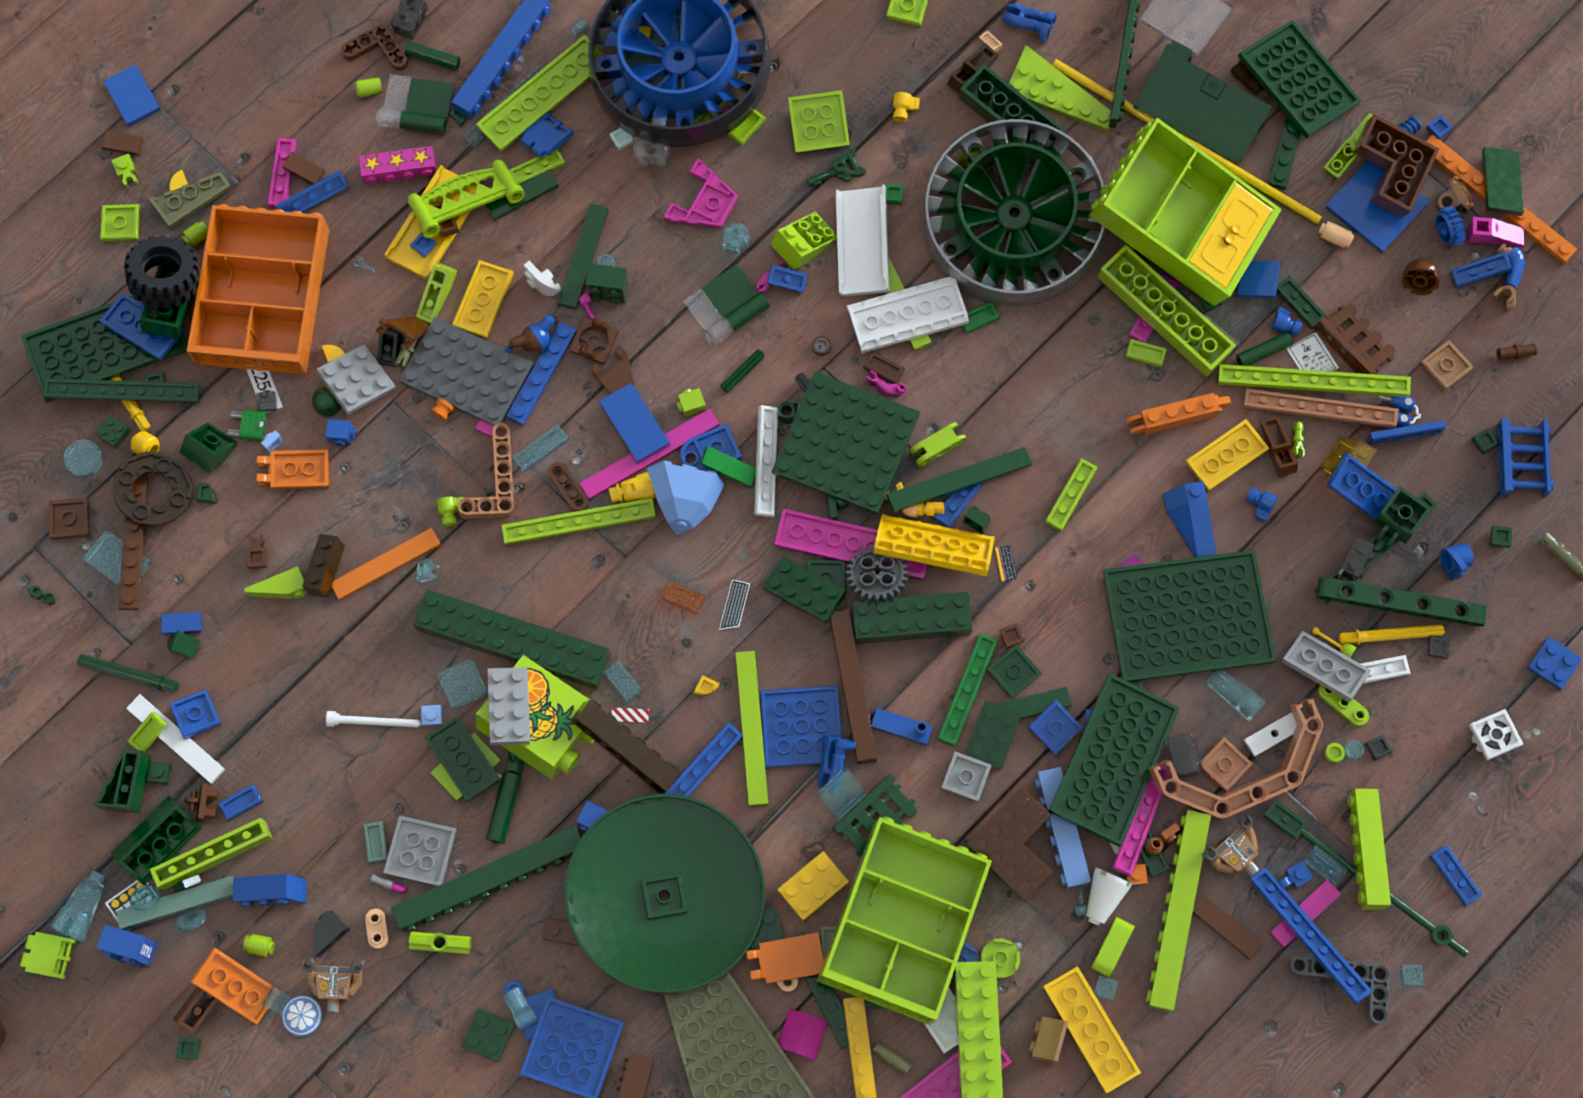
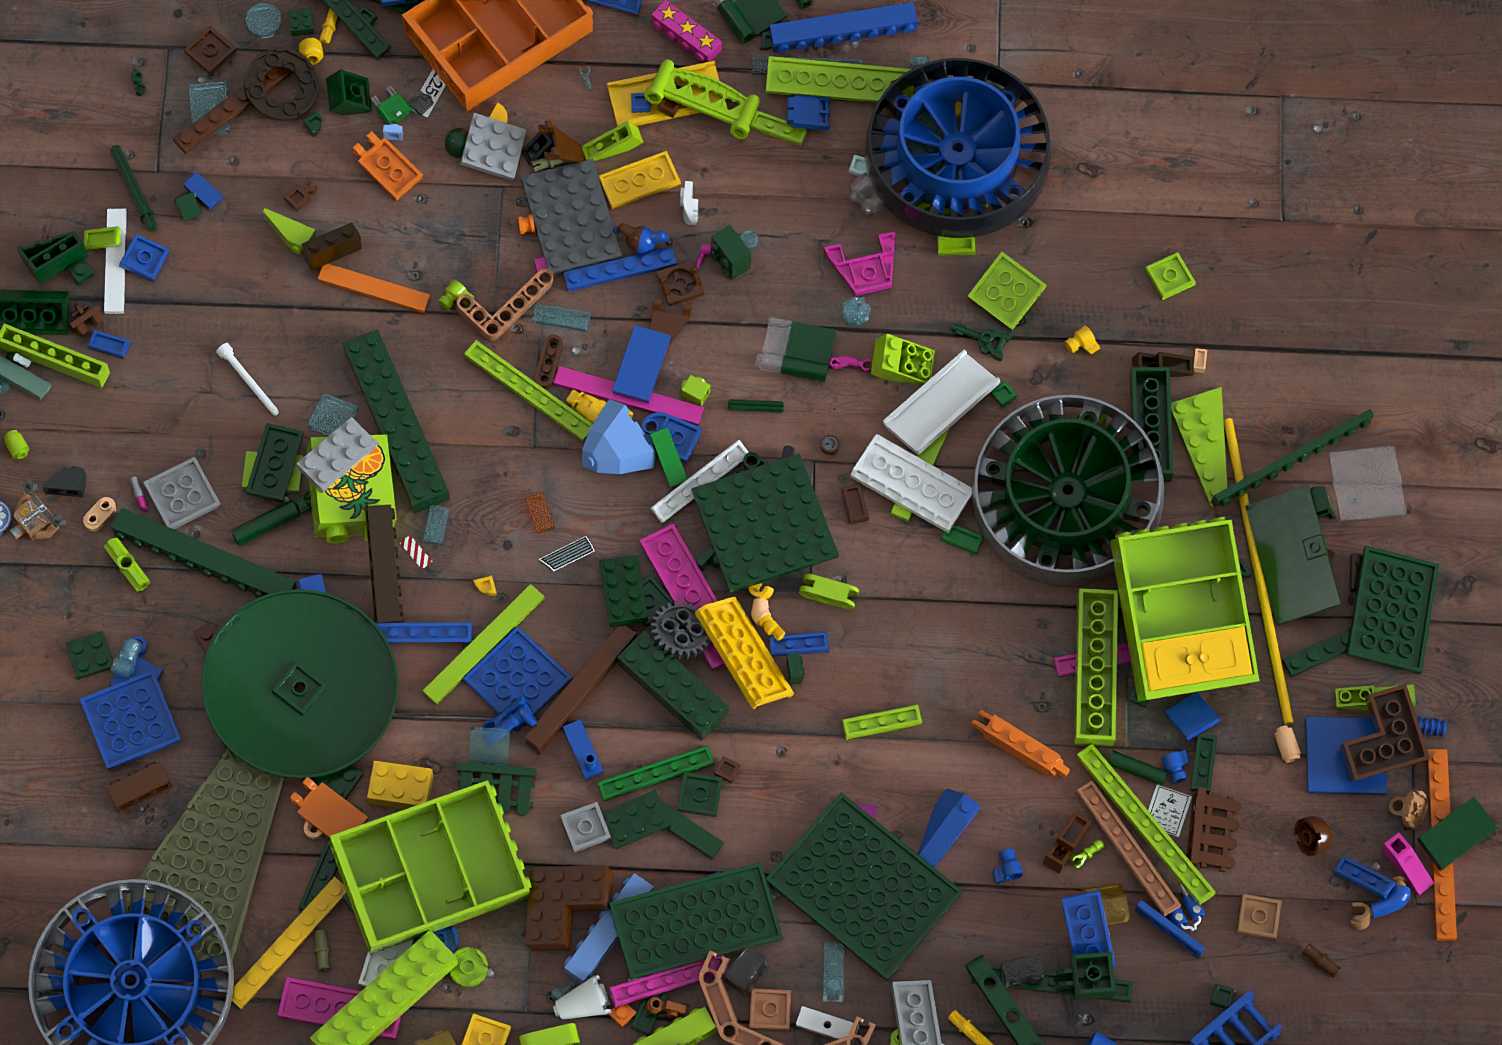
camera: 45 degrees right, 5 degrees down
(269, 890) = (62, 417): blue wedge -> none
(340, 432) = (443, 171): blue brick -> none
(375, 842) = (162, 458): sand green tile -> none
(424, 570) = (392, 318): clear light blue tile -> none
(431, 715) = (289, 416): light blue plate -> none
(533, 189) = (756, 139): dark green tile -> none
(583, 256) = (741, 218): dark green tile -> none
(787, 278) = (858, 374): blue plate -> none
(802, 1034) = (284, 873): dark pink slope -> none
(888, 389) = (840, 520): dark pink arm -> none
(958, 479) = (814, 629): dark green tile -> none
(1006, 563) = (782, 719): black sticker -> none
(1018, 17) = (1236, 366): blue piece -> none
(1055, 727) = (683, 859): blue tile -> none
(1146, 353) = (1050, 683): lime tile -> none
(1227, 455) = (1022, 810): yellow plate -> none
(1346, 649) = (946, 1027): hinge -> none
(1439, 127) = (1458, 750): blue plate -> none
(1450, 226) = (1376, 823): blue gear -> none

